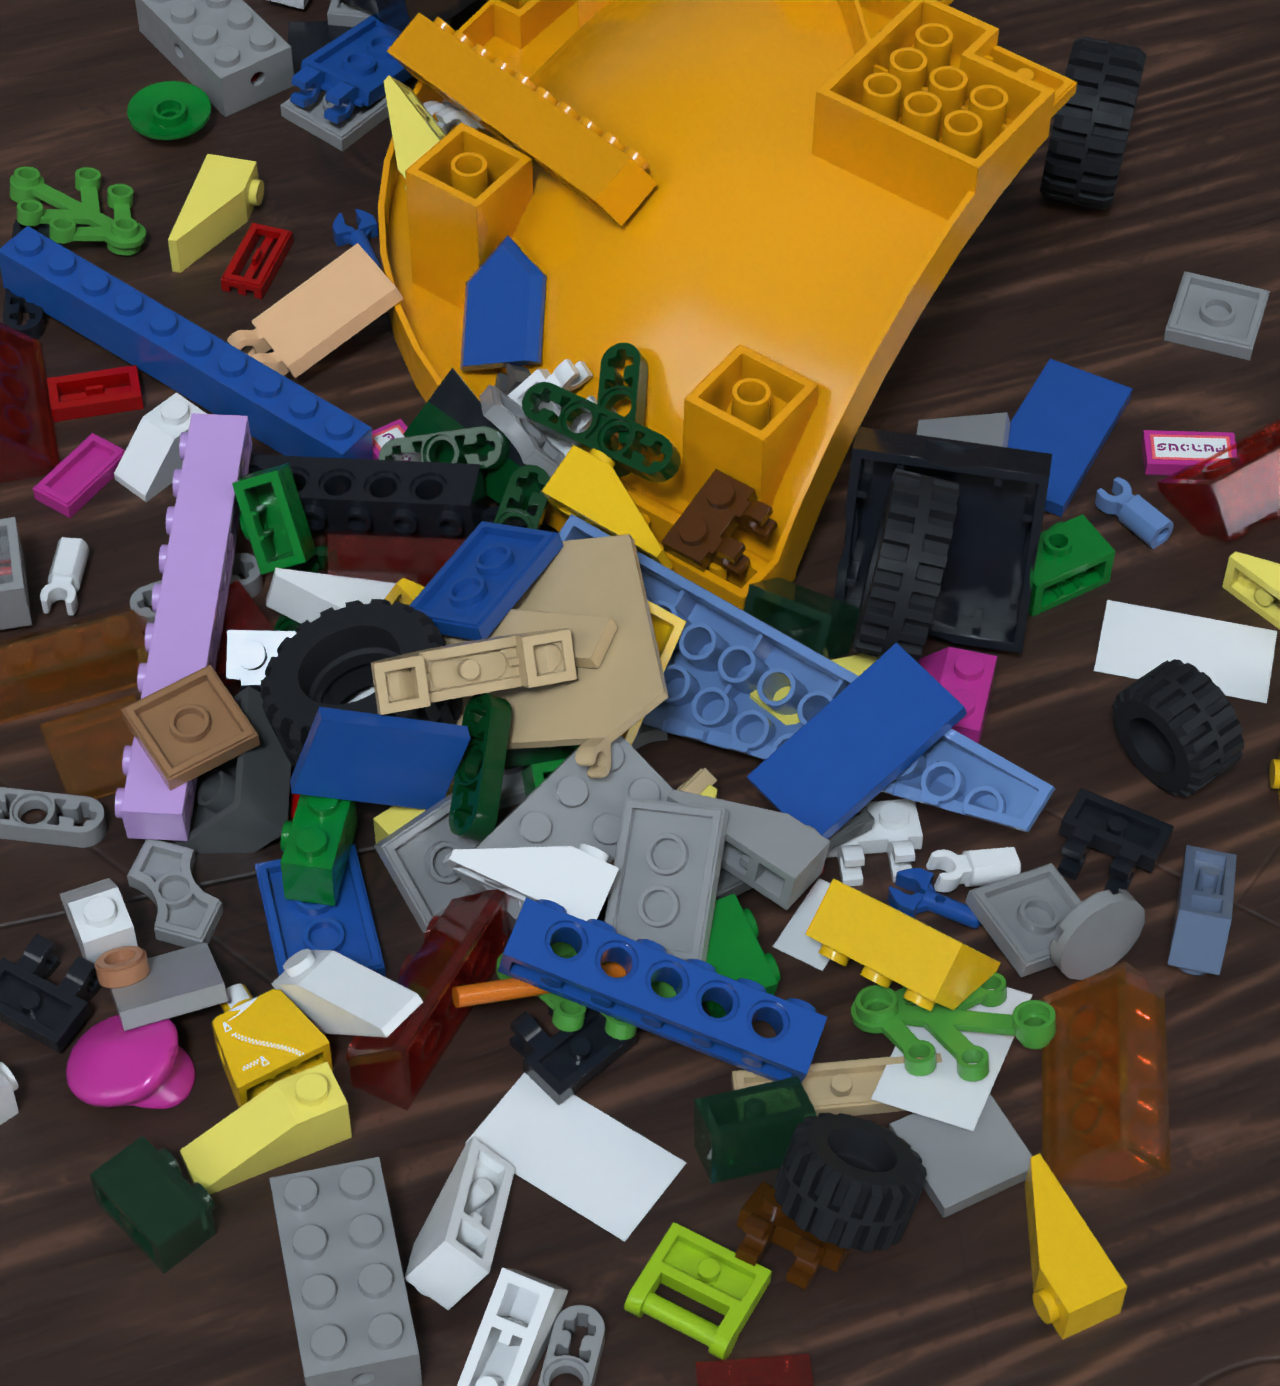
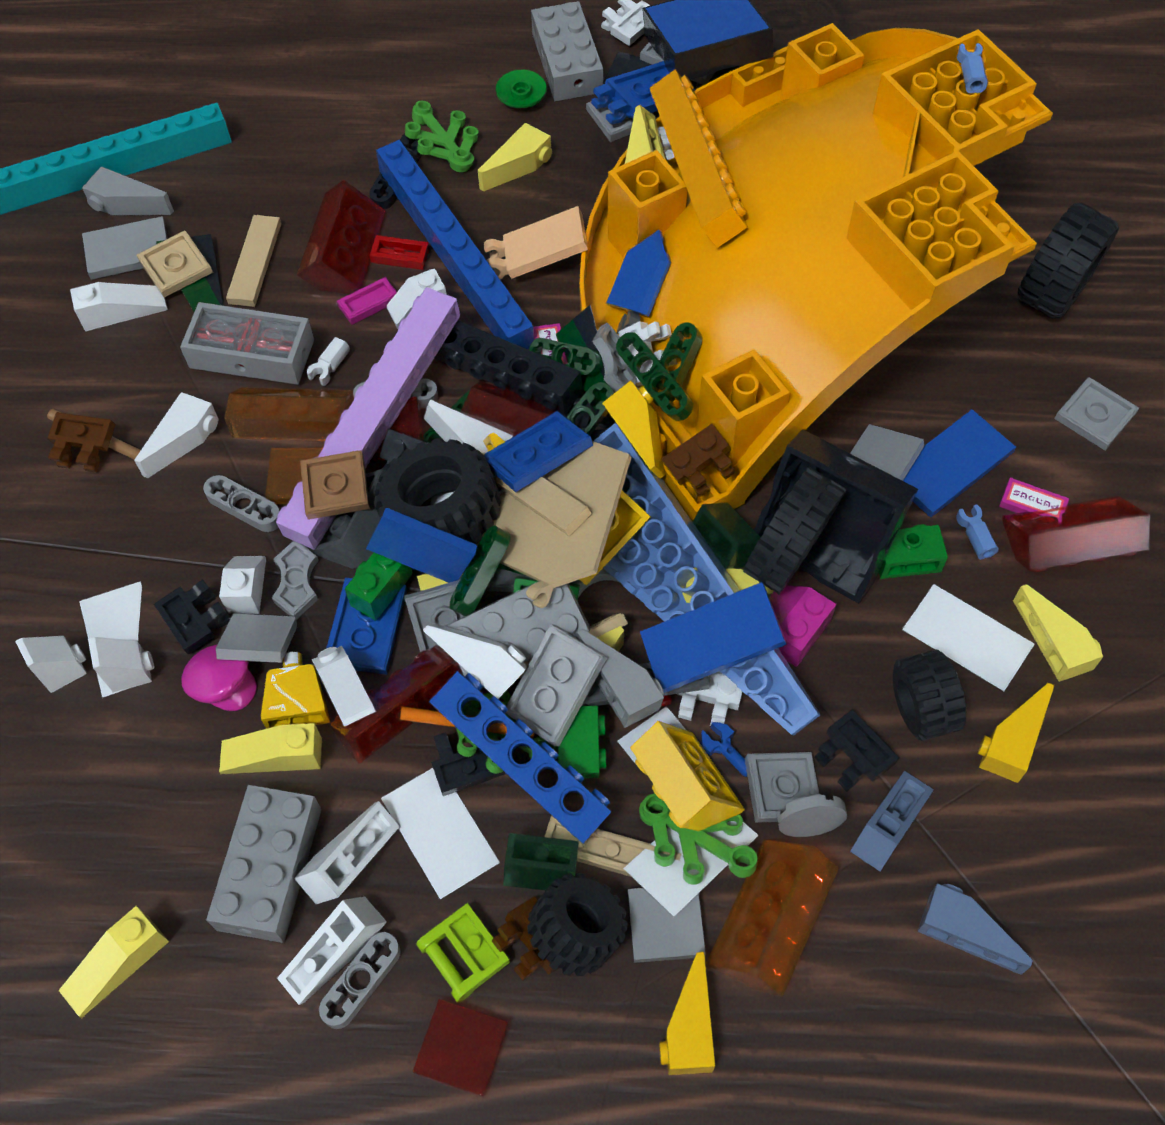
camera: 25 degrees right, 10 degrees up
(122, 967) = (238, 617): nougat tile -> none
(154, 1203) = (188, 770): clear green brick -> none
(268, 272) = (532, 198): red tile -> none
(274, 518) = (447, 366): green brick -> none
(366, 229) = (585, 196): blue bar -> none
(473, 669) = (489, 510): tan slope -> none
(973, 867) = (760, 738): white bar -> none

